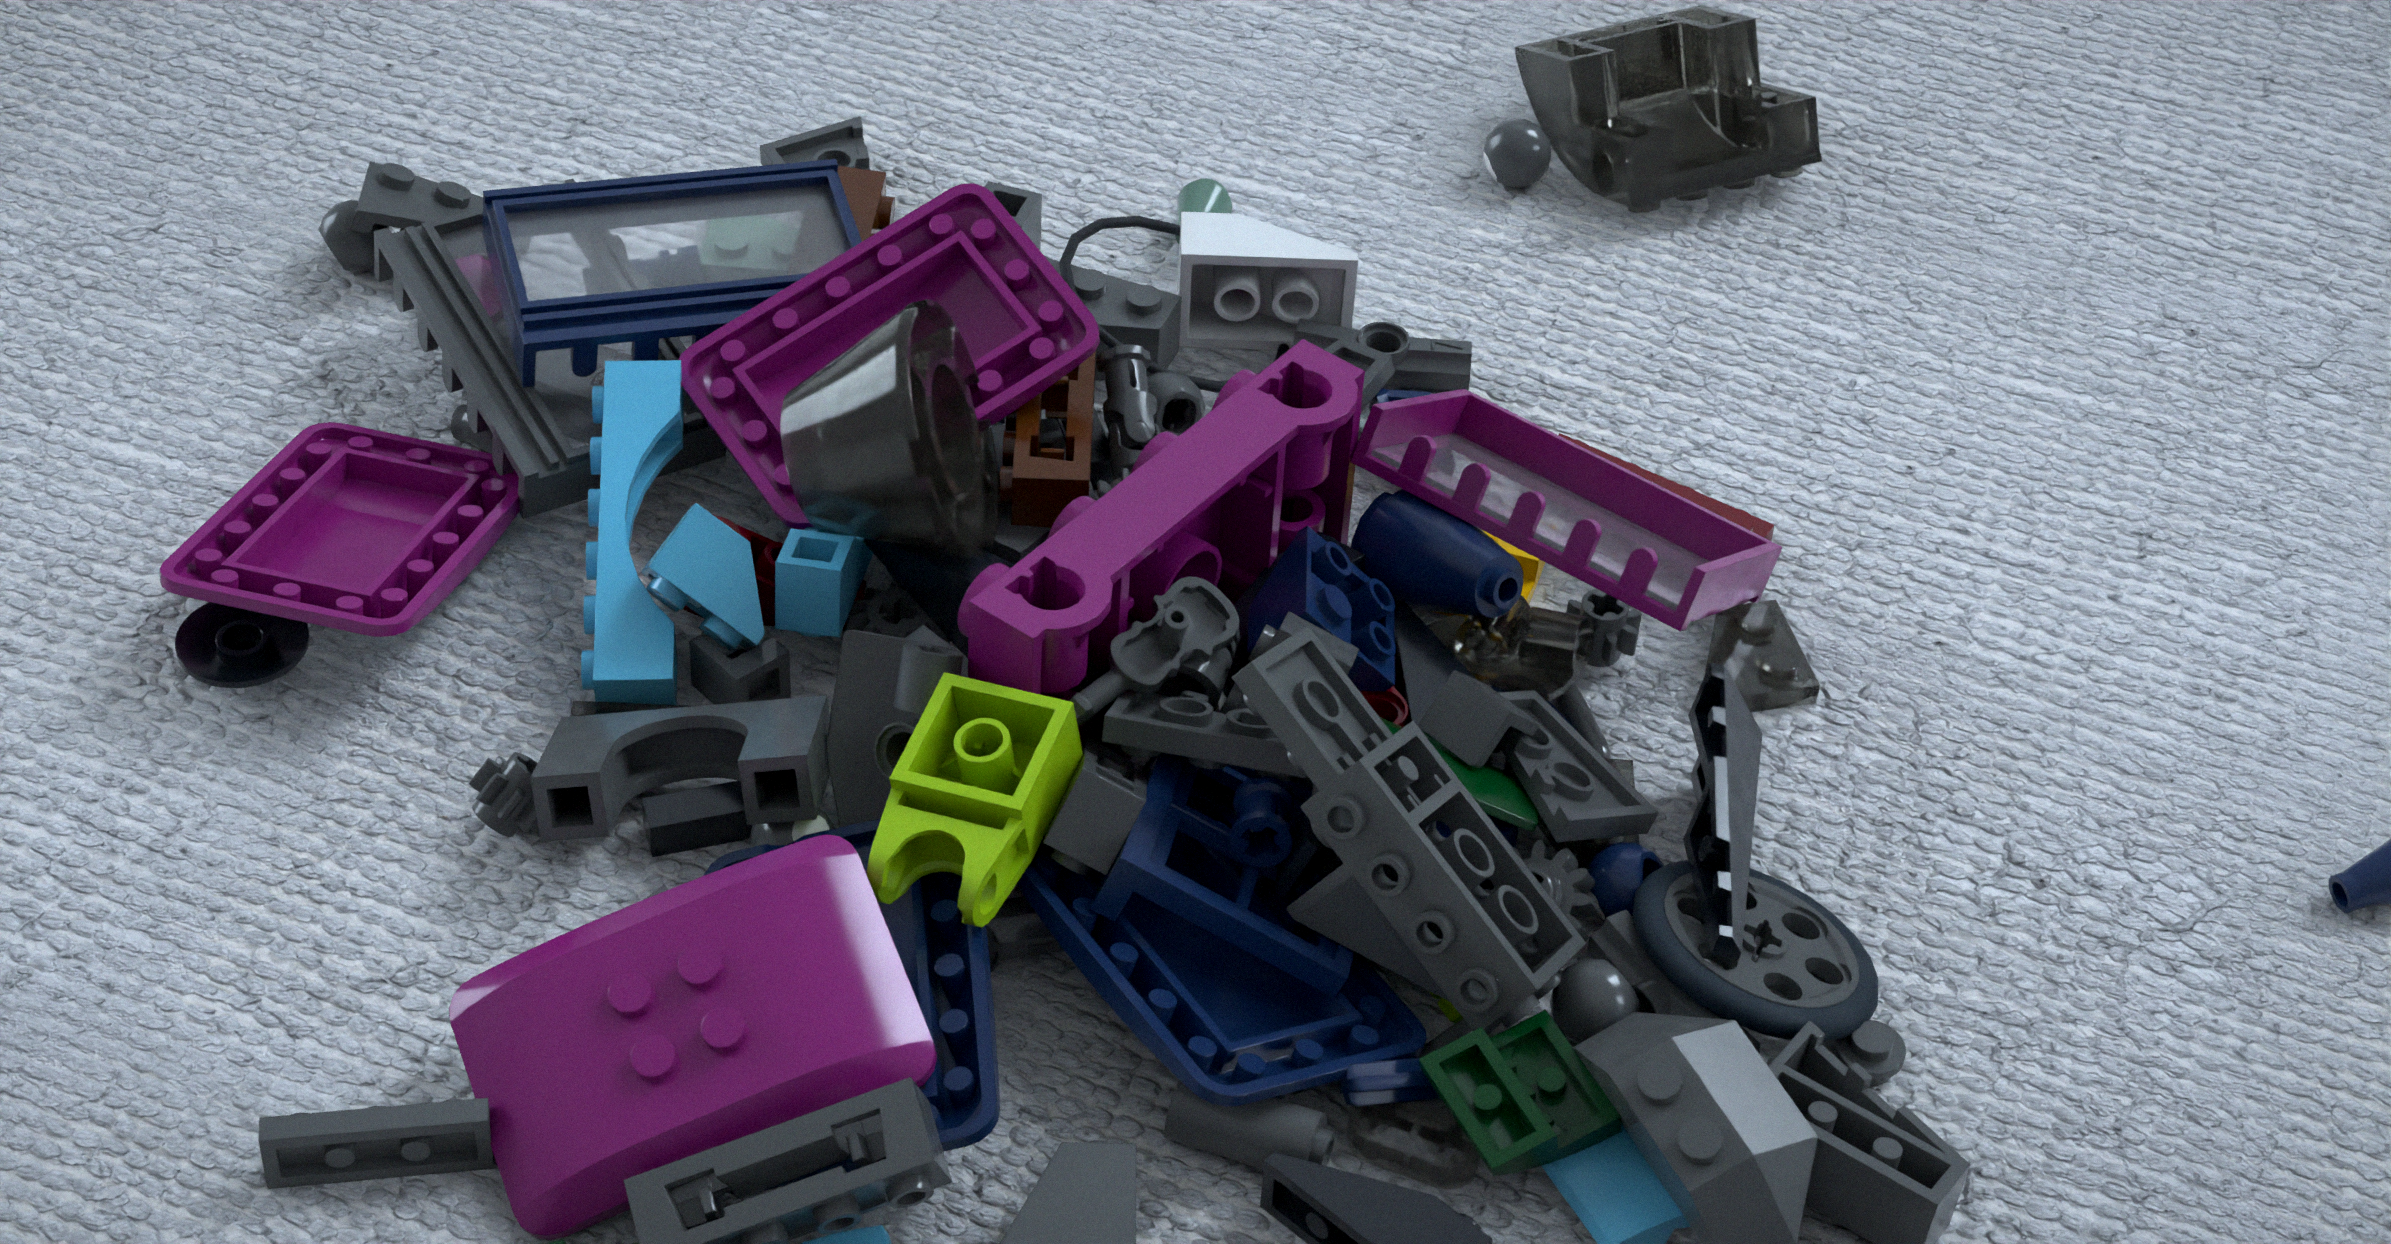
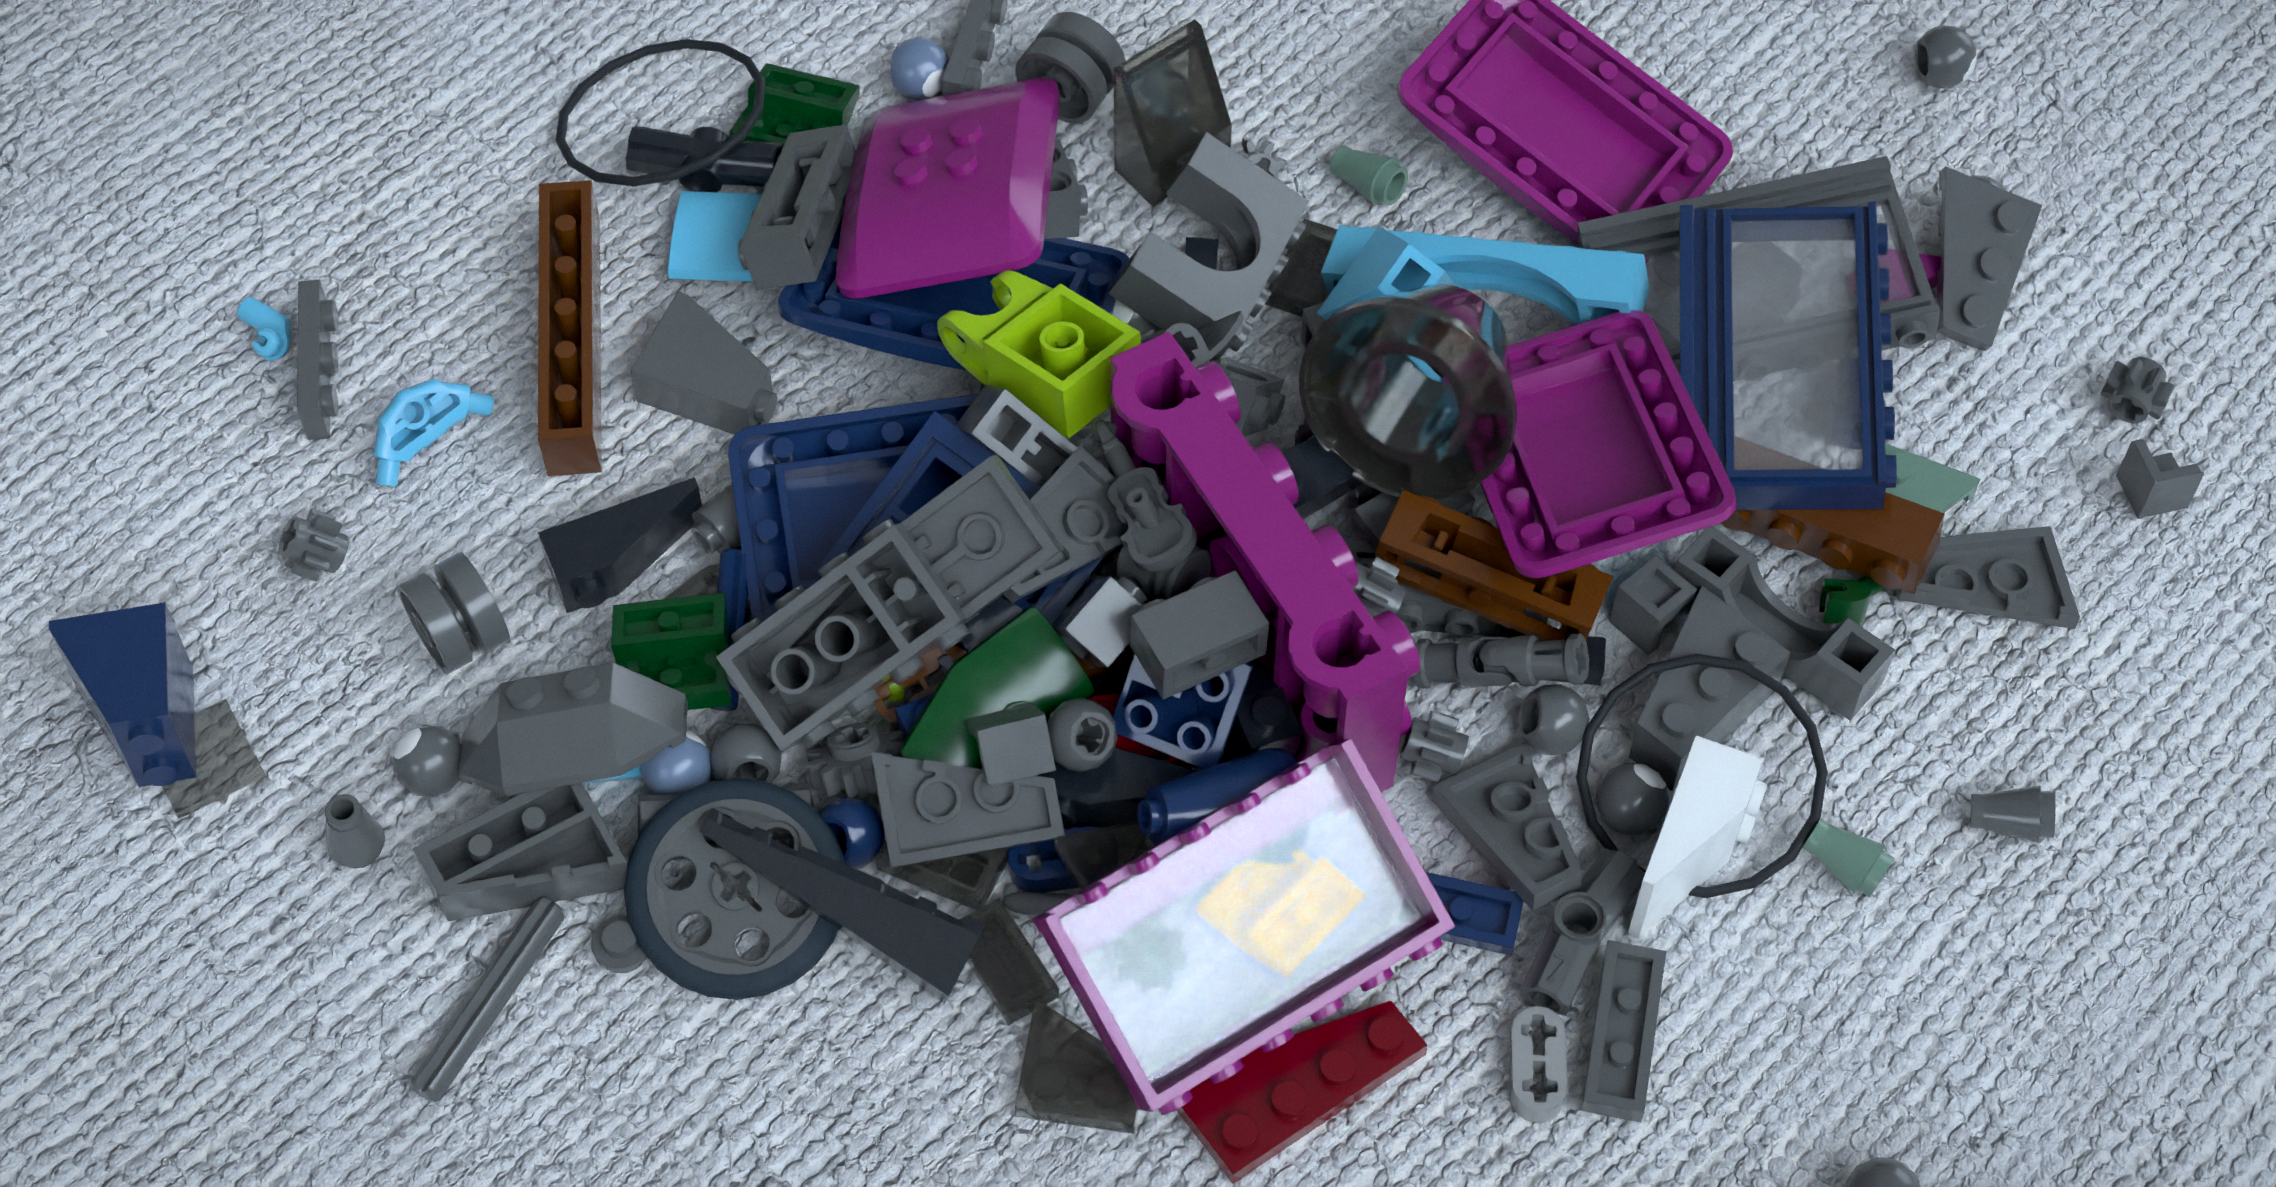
camera: 115 degrees right, 15 degrees up
(129, 287) = (1945, 56): none -> dark grey piece
(404, 998) = (1078, 58): none -> dark grey wheel
(449, 1182) = (918, 68): none -> sand blue piece
(472, 702) = (1373, 175): none -> sand green cone
(485, 861) = (1164, 109): none -> clear smoke slope
(563, 113) = (2137, 390): none -> dark grey gear
(670, 98) = (2156, 482): none -> dark grey panel
(1089, 130) = (2015, 812): none -> dark grey cone
(1218, 349) = (1632, 798): none -> dark grey piece
(1315, 540) = (1198, 633): none -> dark grey brick
(1420, 675) = (1081, 734): none -> dark grey piece
(1477, 317) = (1624, 1031): none -> dark grey plate
(1525, 370) = (1524, 1064): none -> light grey beam
(1663, 750) = (1009, 965): none -> clear smoke tile
(2046, 1148) = (487, 1000): none -> dark grey axle

